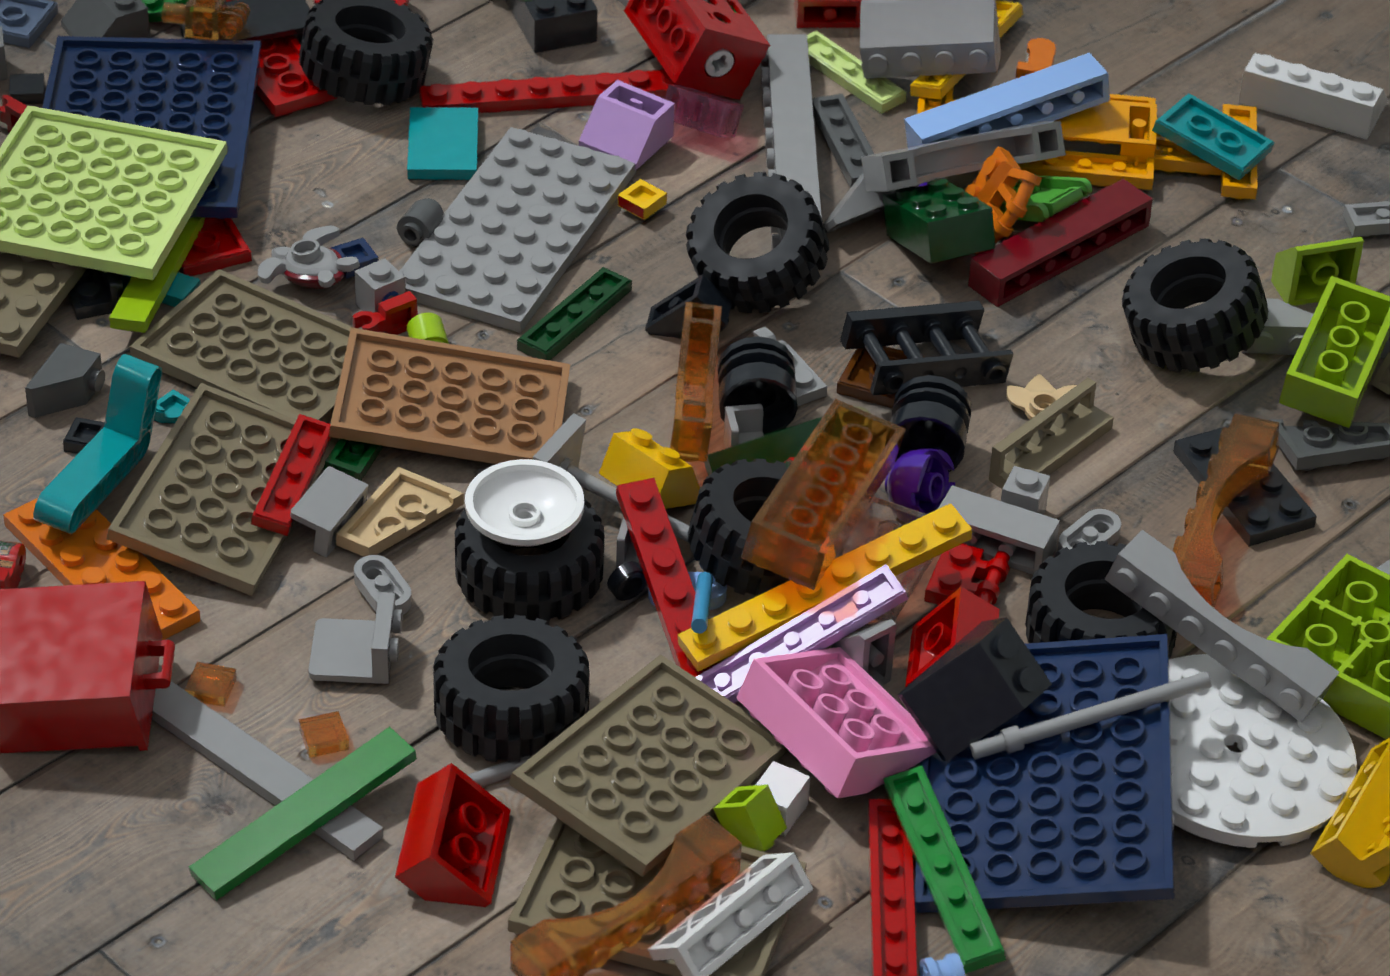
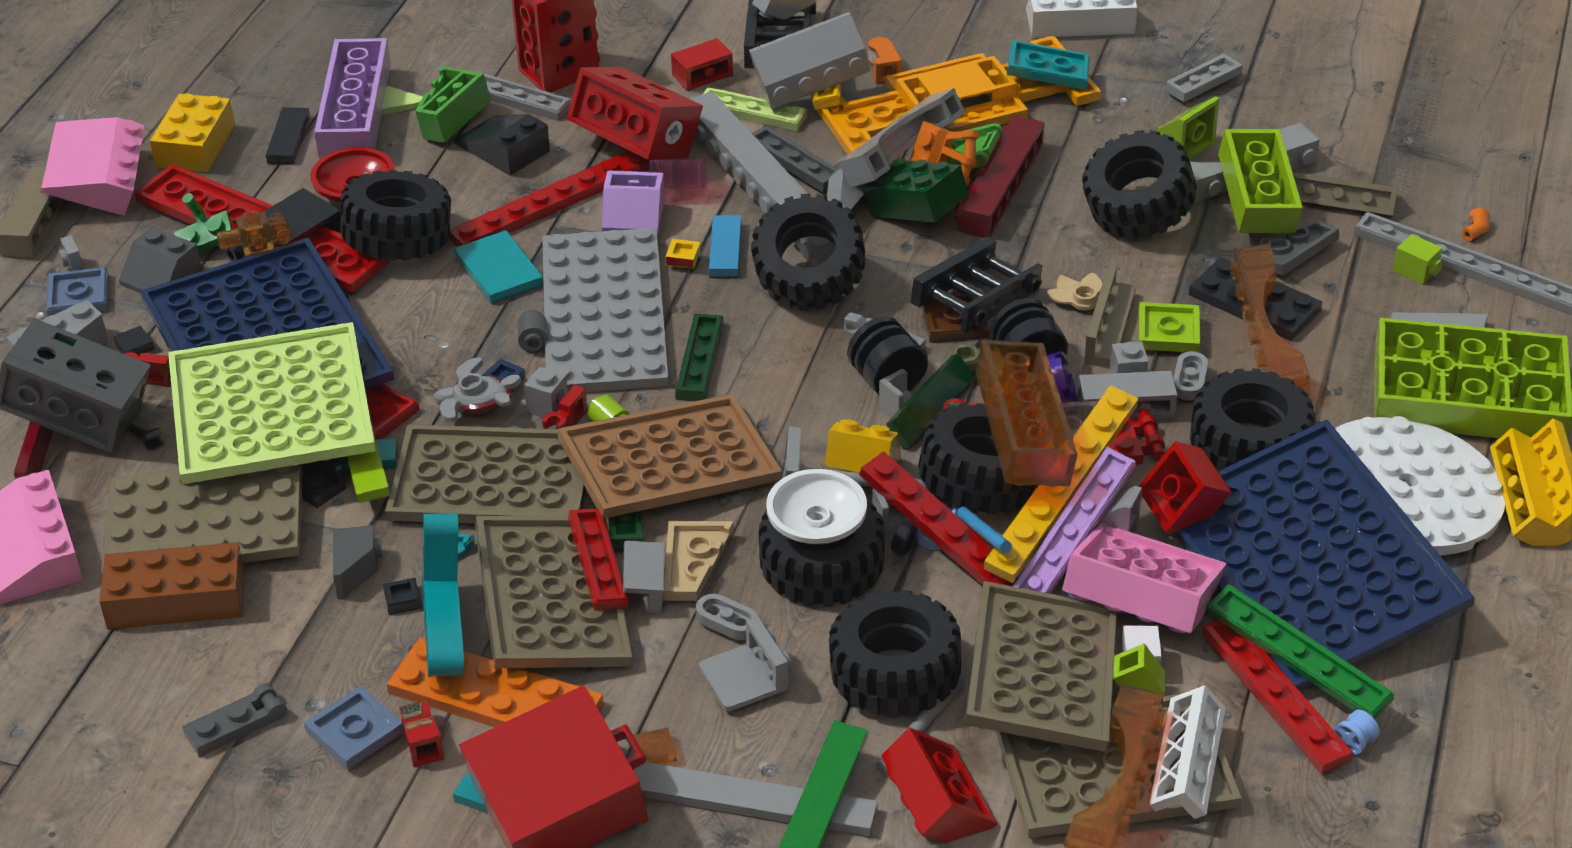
camera: 25 degrees left, 0 degrees up
(323, 734) = (772, 749): clear orange tile -> none
(667, 315) = (787, 322): black slope -> none
(675, 222) = (725, 246): none -> dark azure tile
(695, 381) = (818, 346): clear orange arch -> none
(974, 687) = (1235, 509): black slope -> none
(1014, 739) = (1280, 536): light grey bar -> none
(1022, 101) = (906, 88): light blue brick -> none
(1111, 476) = (1169, 327): none -> lime plate
(1282, 673) = (1295, 385): light grey arch -> none

